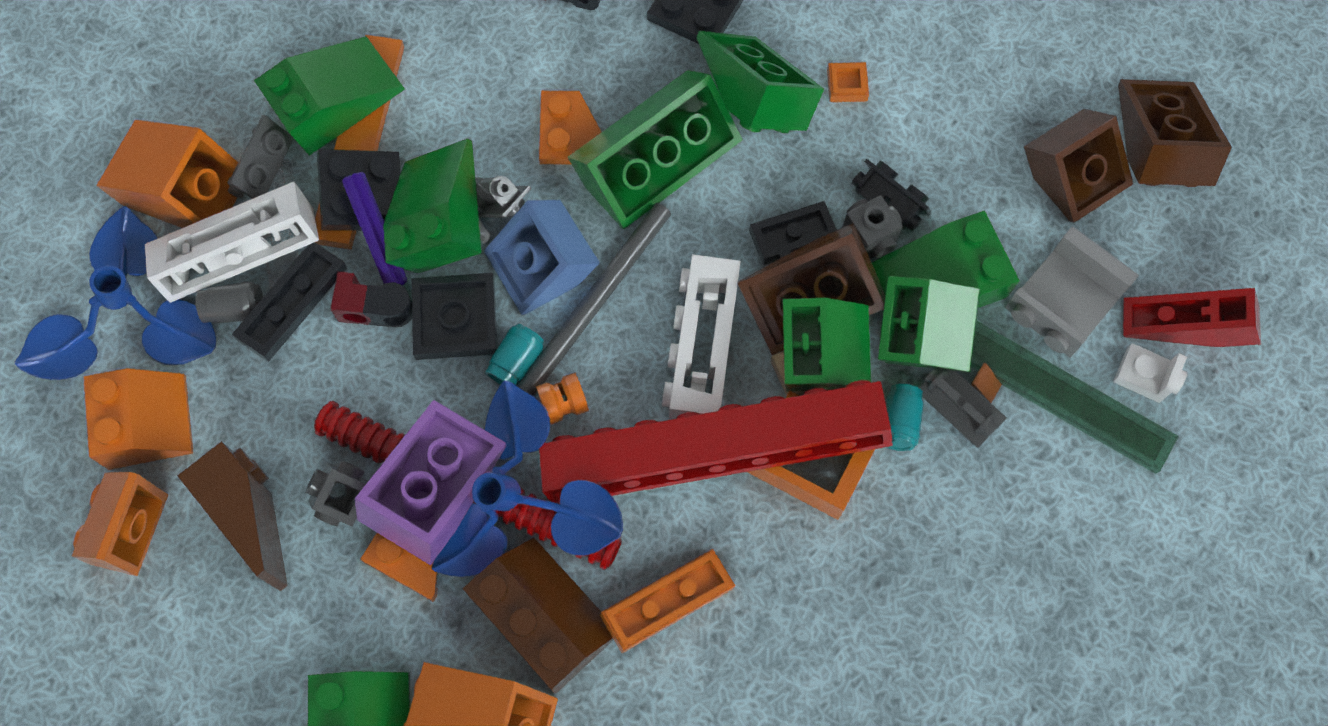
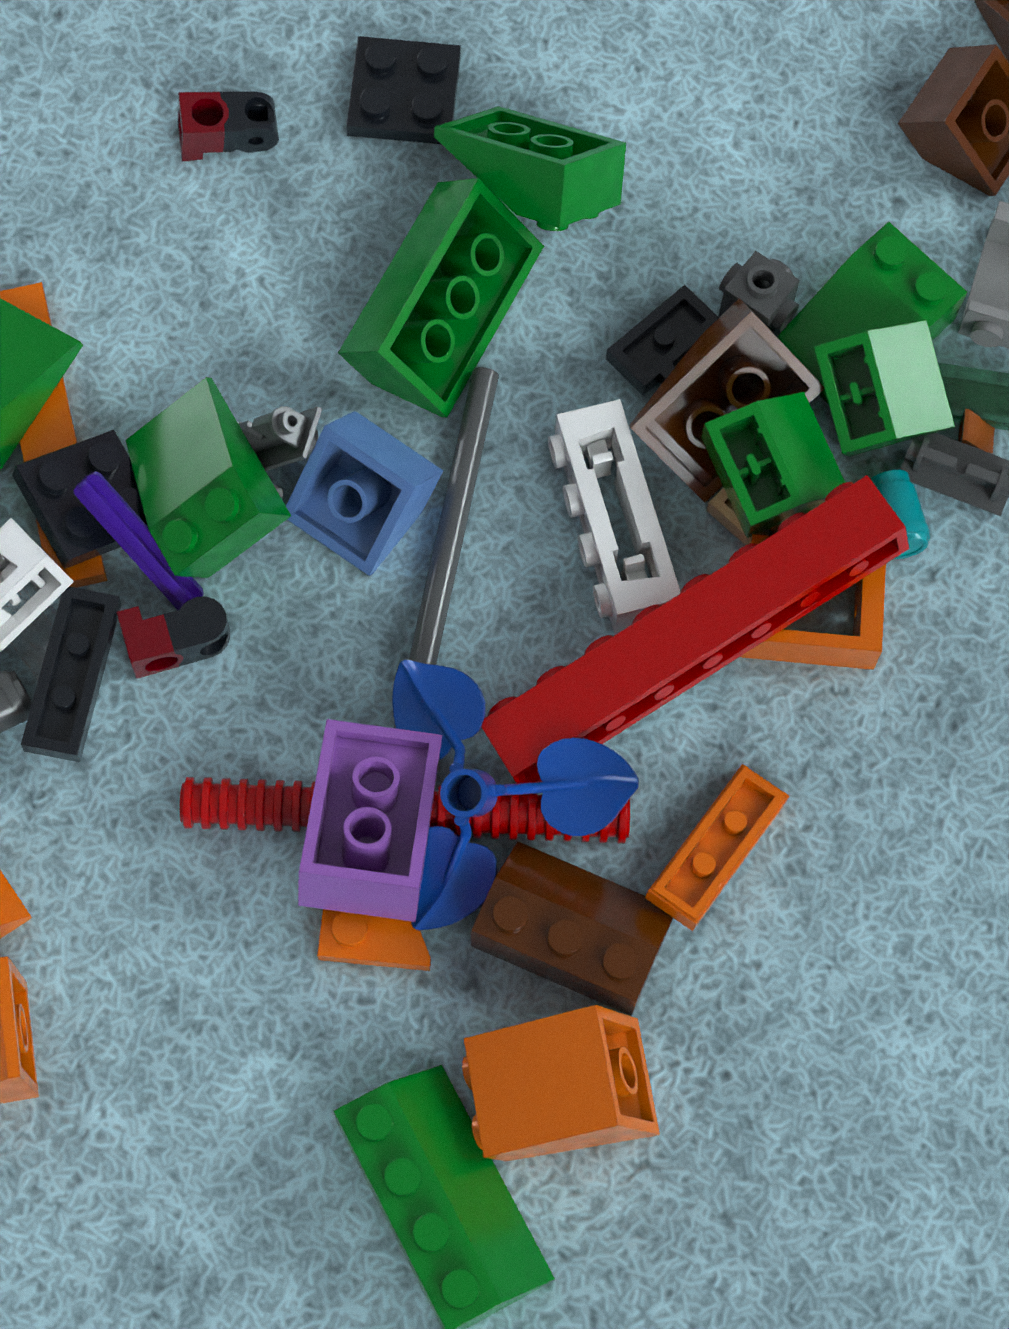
camera: 25 degrees left, 0 degrees up
(241, 506) = (130, 944): reddish brown slope -> none
(333, 509) = (256, 884): dark grey brick -> none
(454, 316) = (287, 610): black plate -> none
(515, 355) = (389, 628): teal piece -> none
(552, 398) = (477, 653): orange wheel -> none
(564, 125) = (309, 315): orange wing -> none
(848, 82) = (642, 121): orange tile -> none
(881, 181) = (744, 235): black hinge -> none

